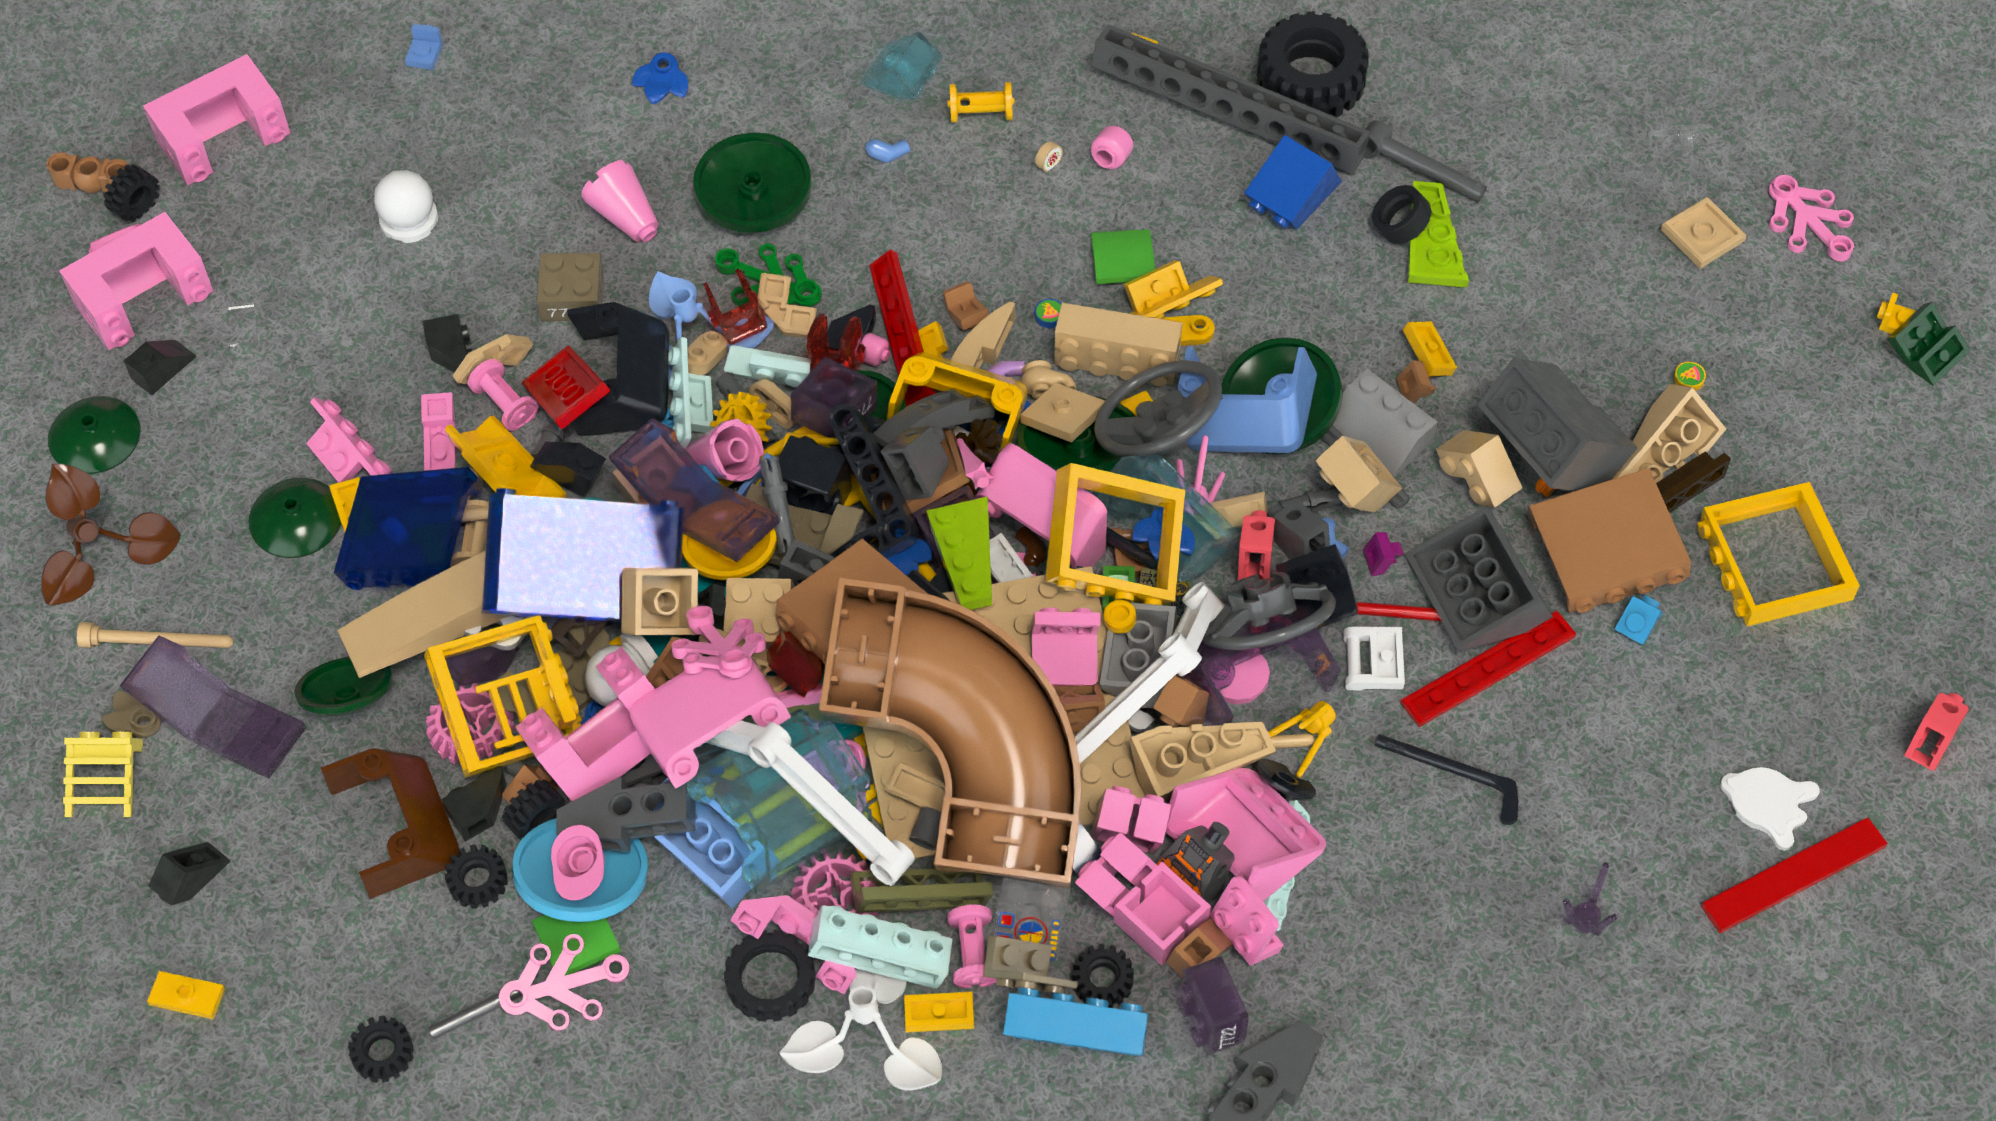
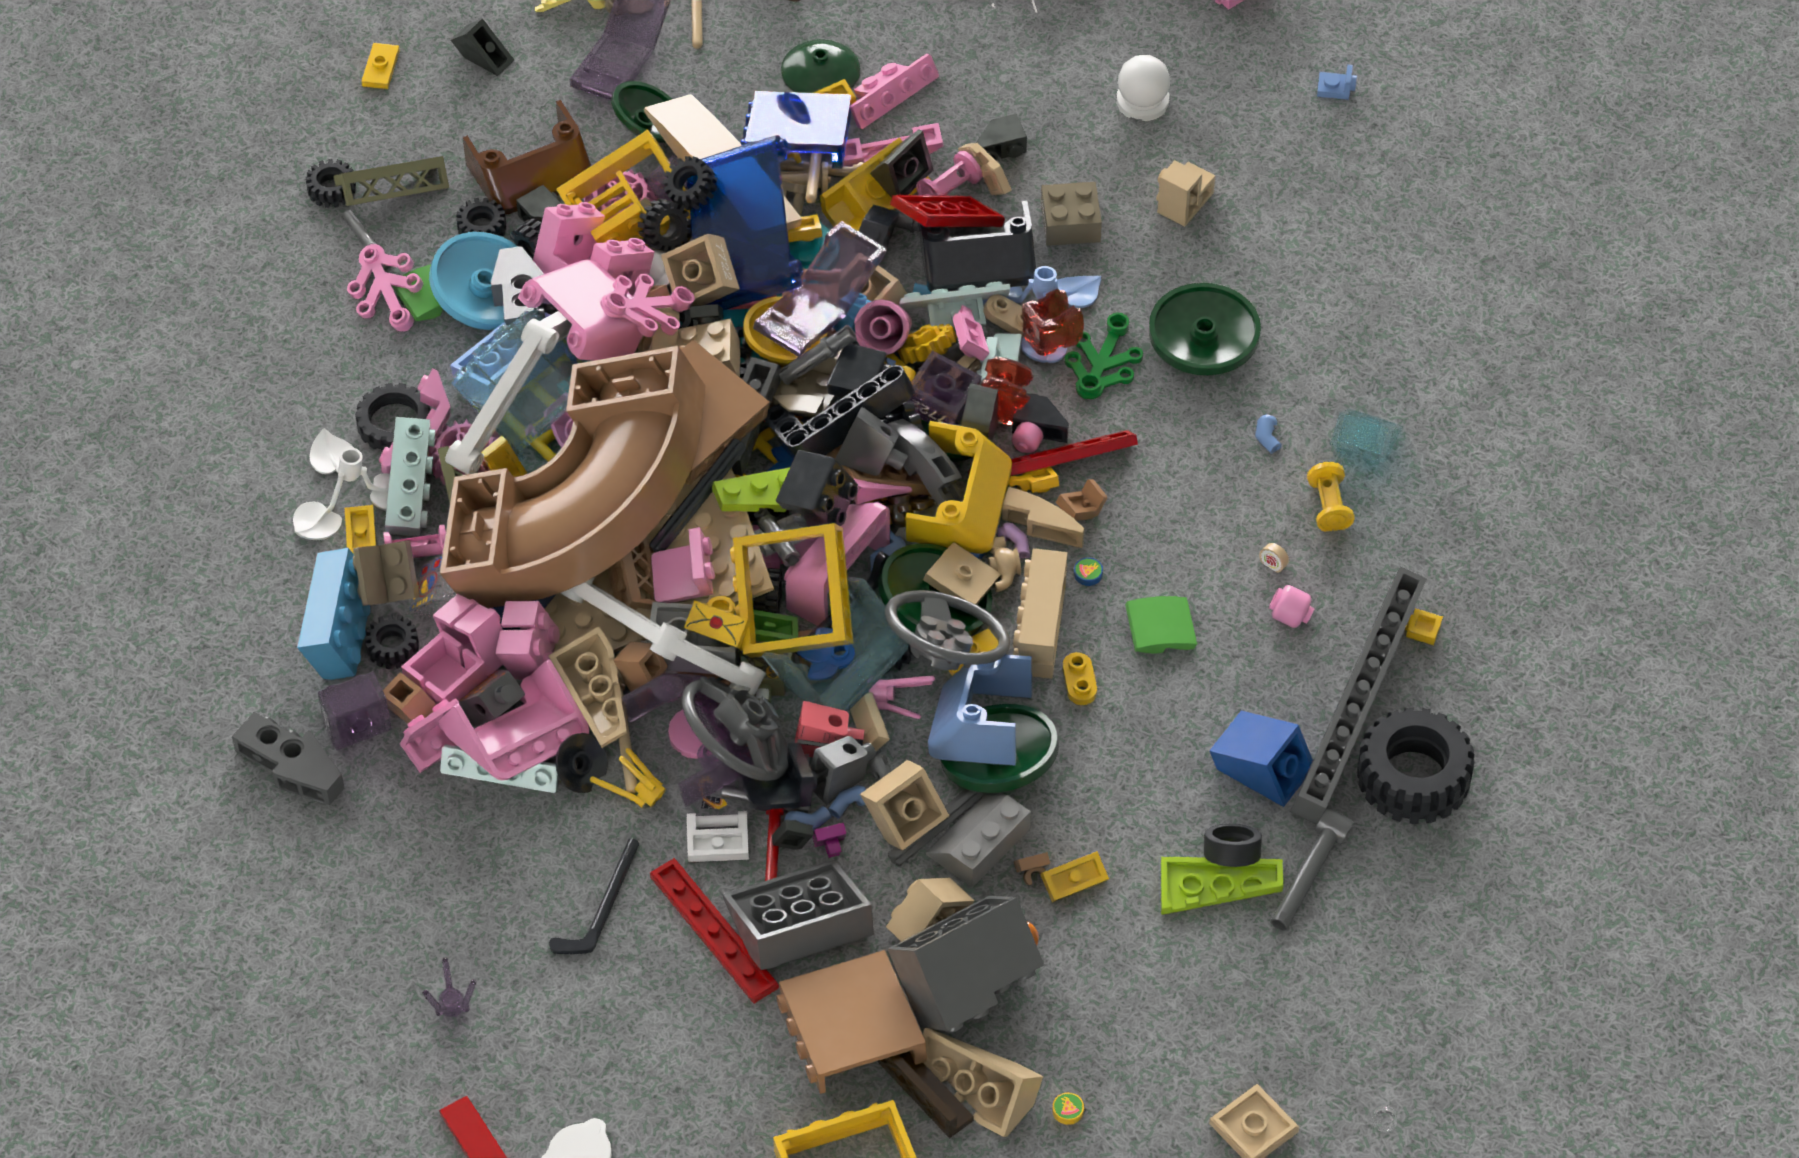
camera: 85 degrees right, 5 degrees down
(388, 970) = (389, 171): none -> olive fence
(485, 426) = (904, 166): none -> pearl dark grey slope
(524, 581) = (681, 173): none -> black tyre
(559, 181) = (1183, 191): none -> tan brick
(570, 643) = (652, 221): none -> black tyre
(577, 862) = (470, 266): bright pink piece -> none
(622, 201) = (1169, 237): bright pink cone -> none
(659, 81) = (1329, 257): blue plate -> none
(739, 380) = (970, 334): none -> bright pink hinge
(787, 318) = (1074, 359): tan tile -> none
(876, 363) = (981, 410): none -> pearl dark grey slope
(1001, 494) = (817, 490): none -> black piece
(1024, 559) = (784, 549): none -> dark grey pin
(1146, 615) = (717, 624): none -> yellow tile
(1166, 289) = (1116, 652): yellow bracket -> none
(1357, 575) = (816, 819): none -> medium blue arm
(1380, 584) = (792, 835): none -> pearl dark grey plate
(1639, 618) = (774, 1052): dark azure bracket -> none

